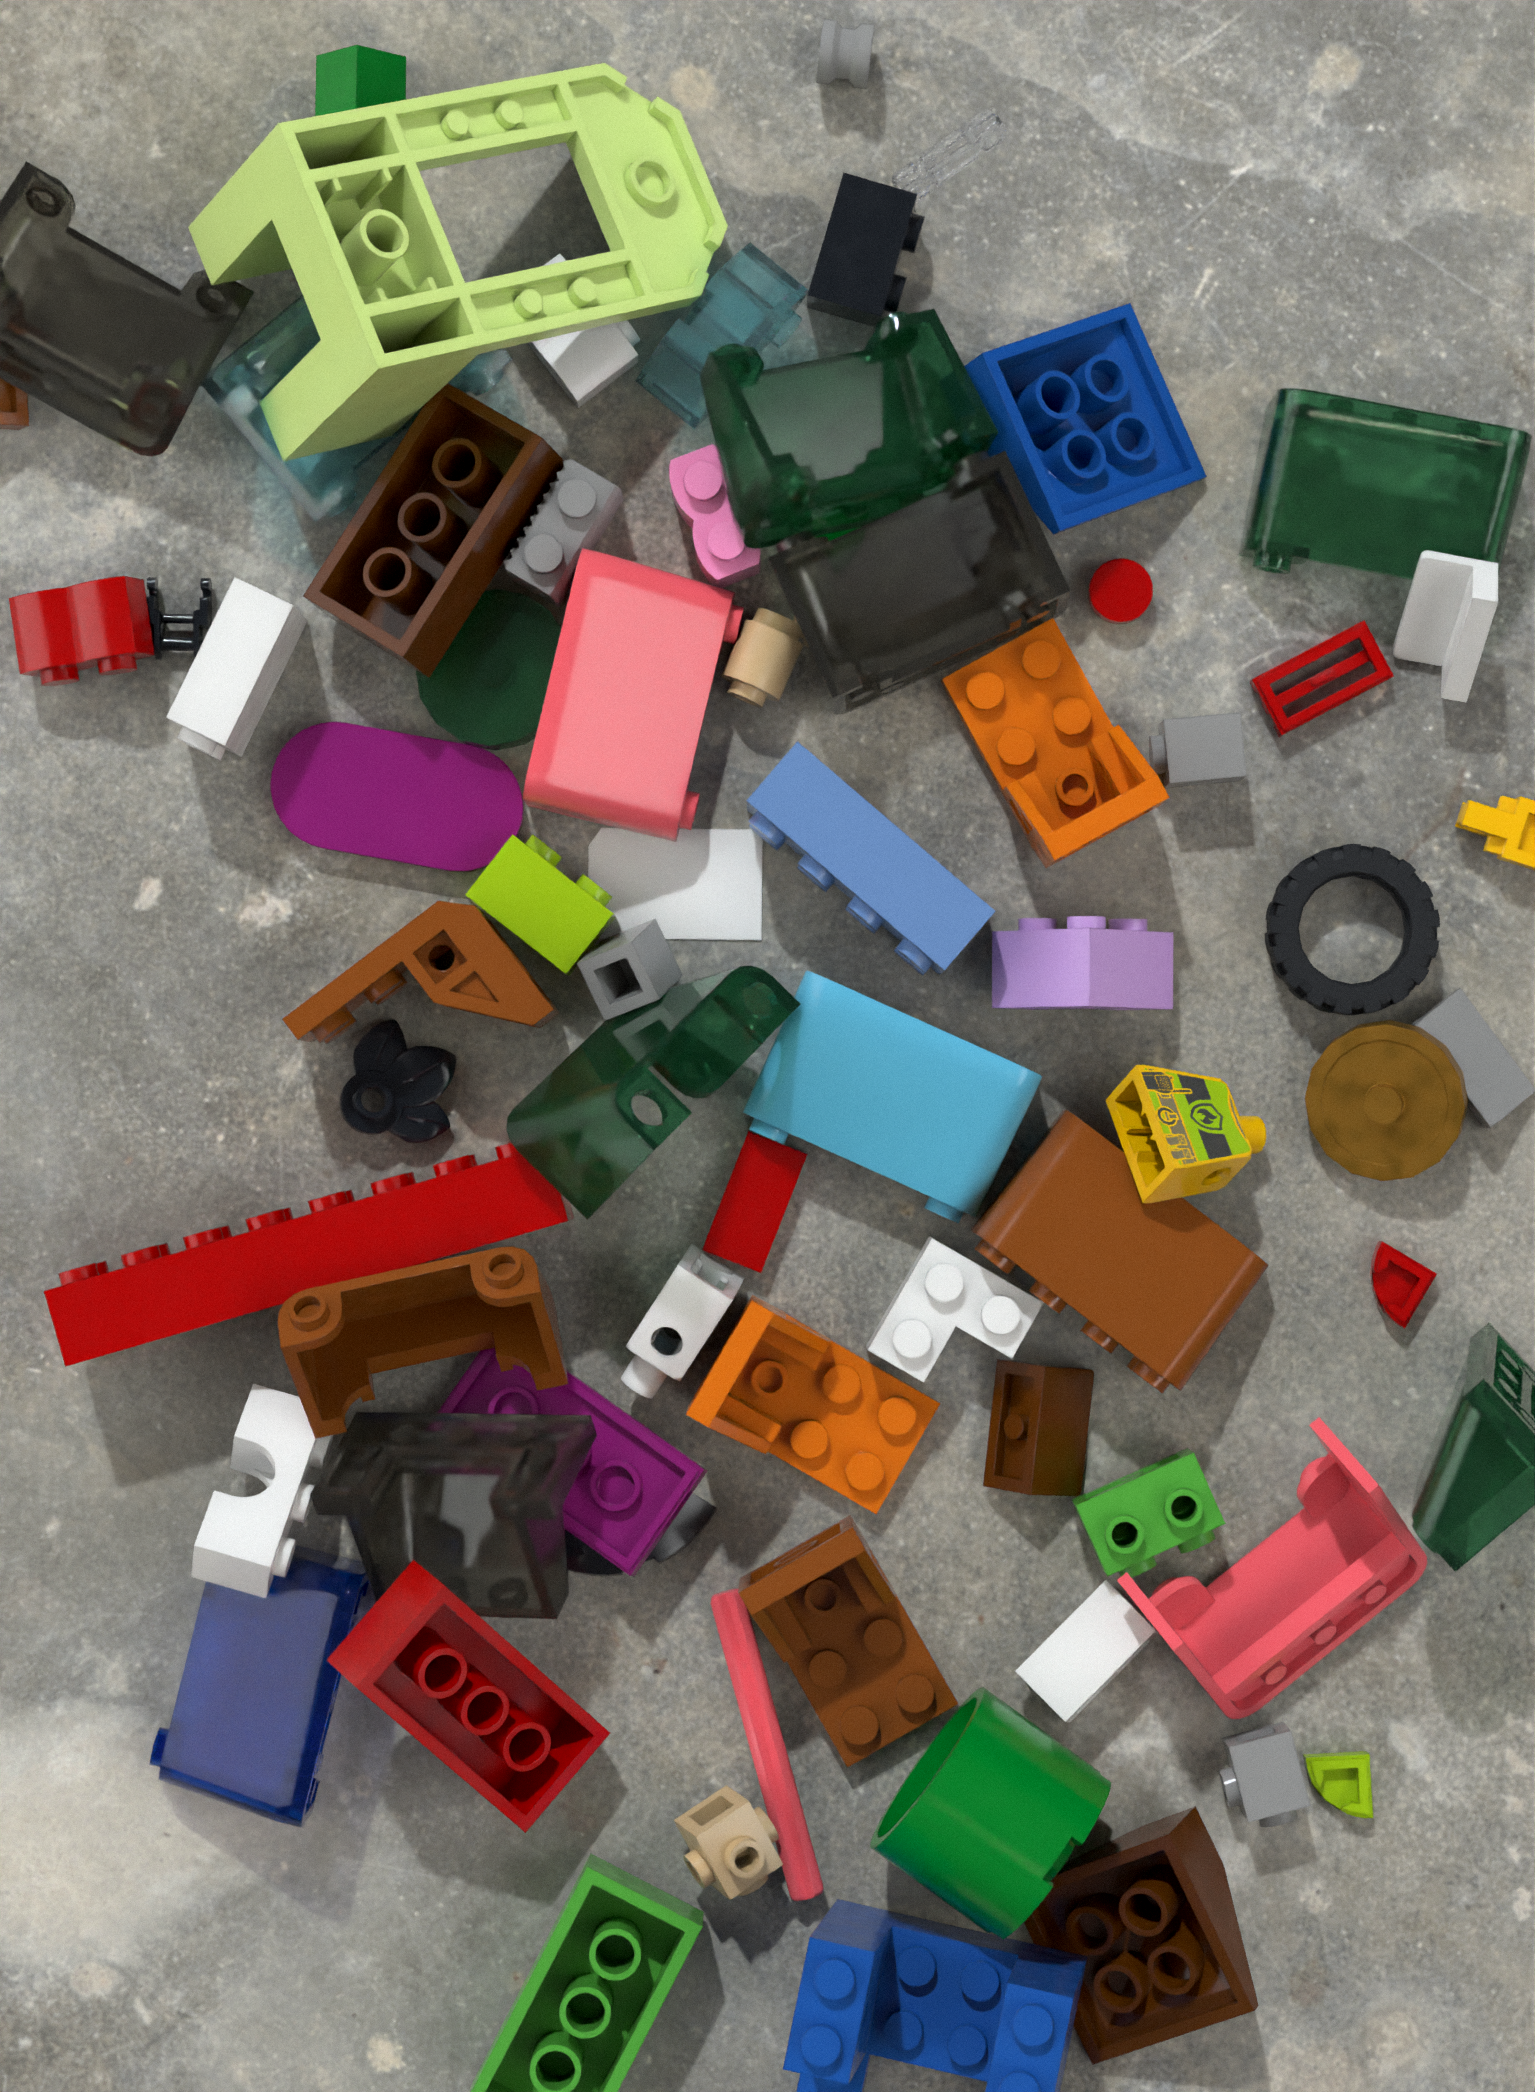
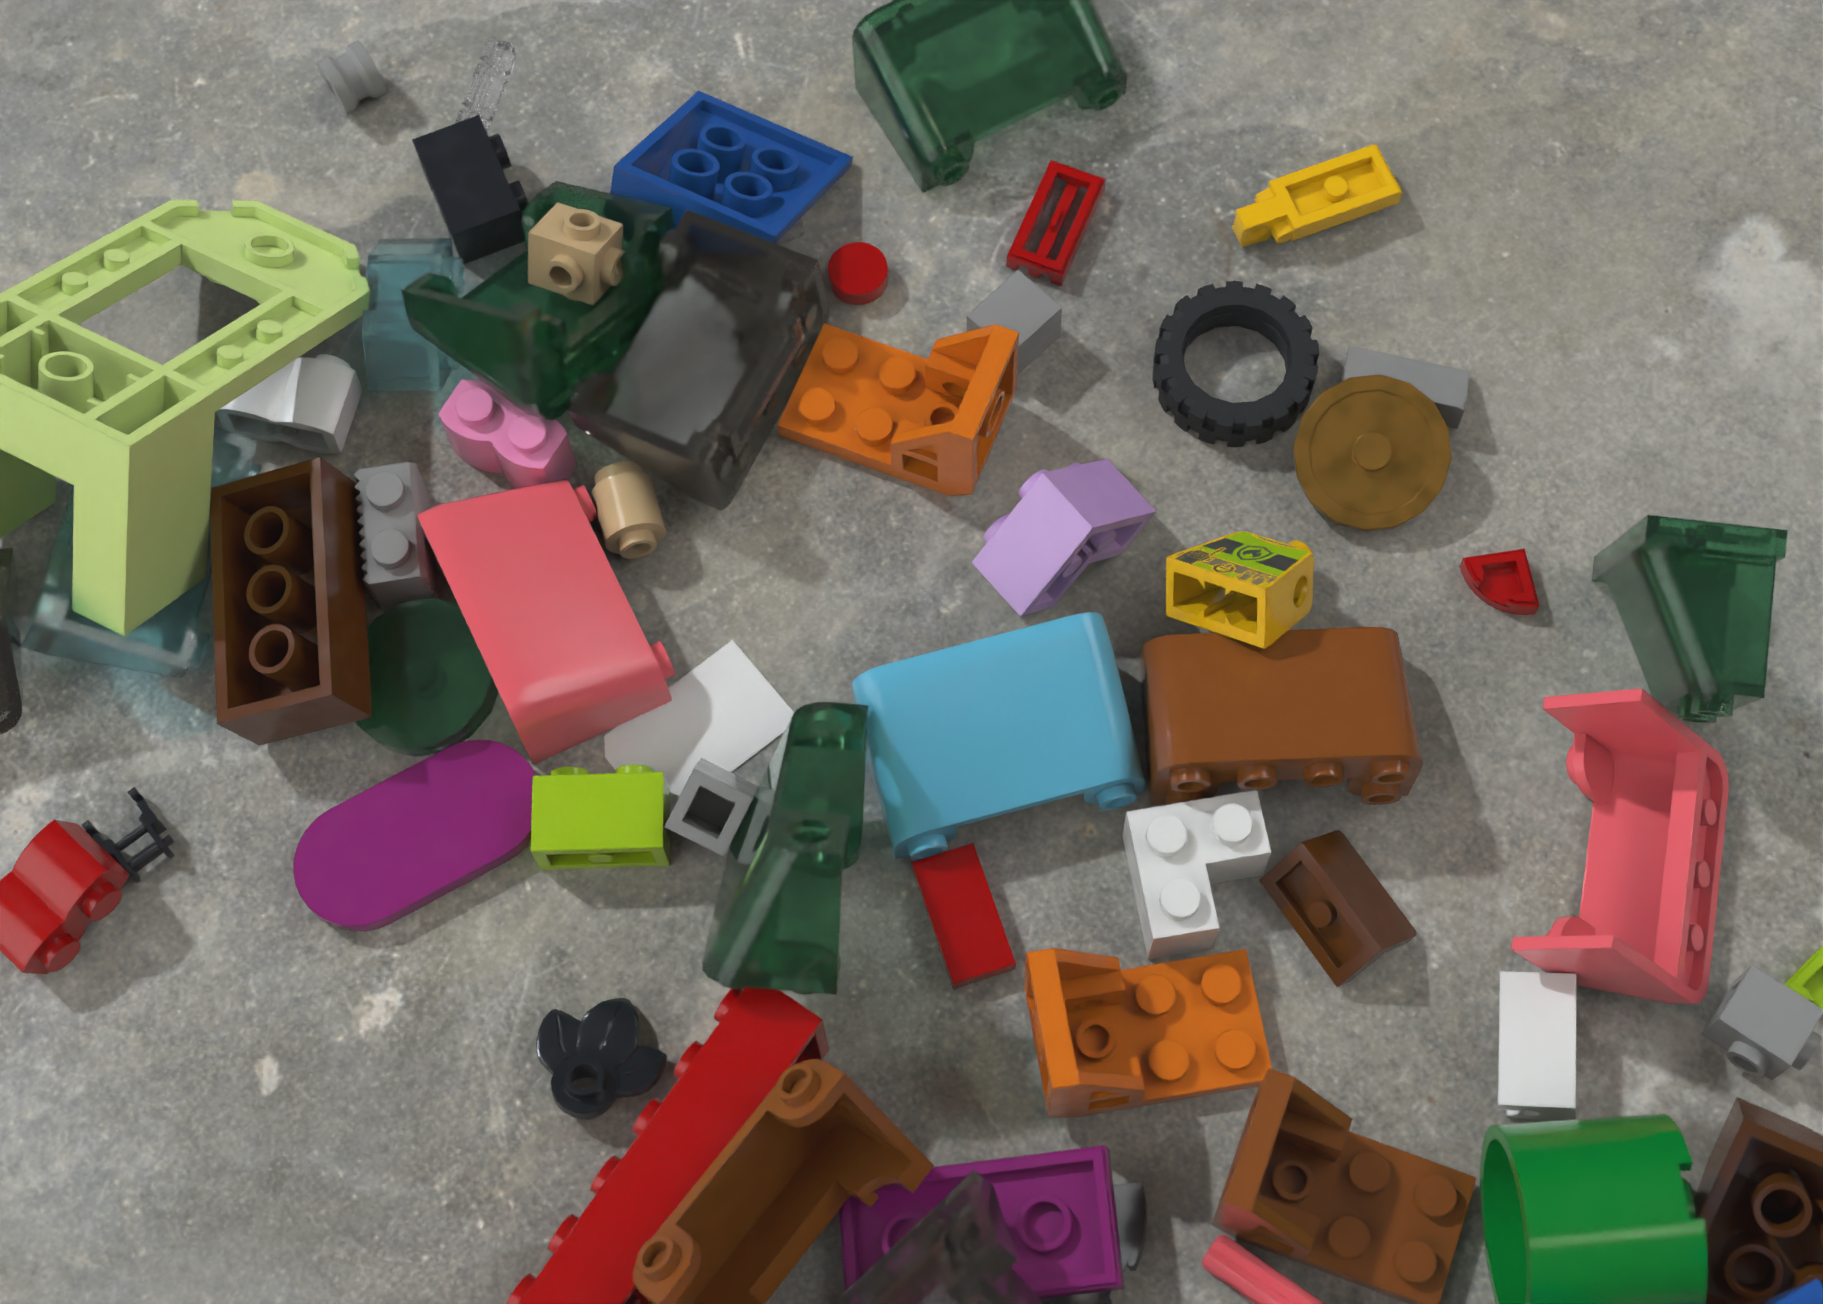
camera: 40 degrees left, 20 degrees down
(236, 670) = (204, 824): white brick -> none
(482, 979) = (559, 906): dark orange bracket -> none
(692, 1306) = (978, 1017): white torso -> none
(868, 859) = (830, 578): medium blue brick -> none
(892, 404) = (575, 253): none -> tan brick
(1146, 1502) = (1484, 893): bright green brick -> none
(1449, 618) = (1110, 102): white panel -> none

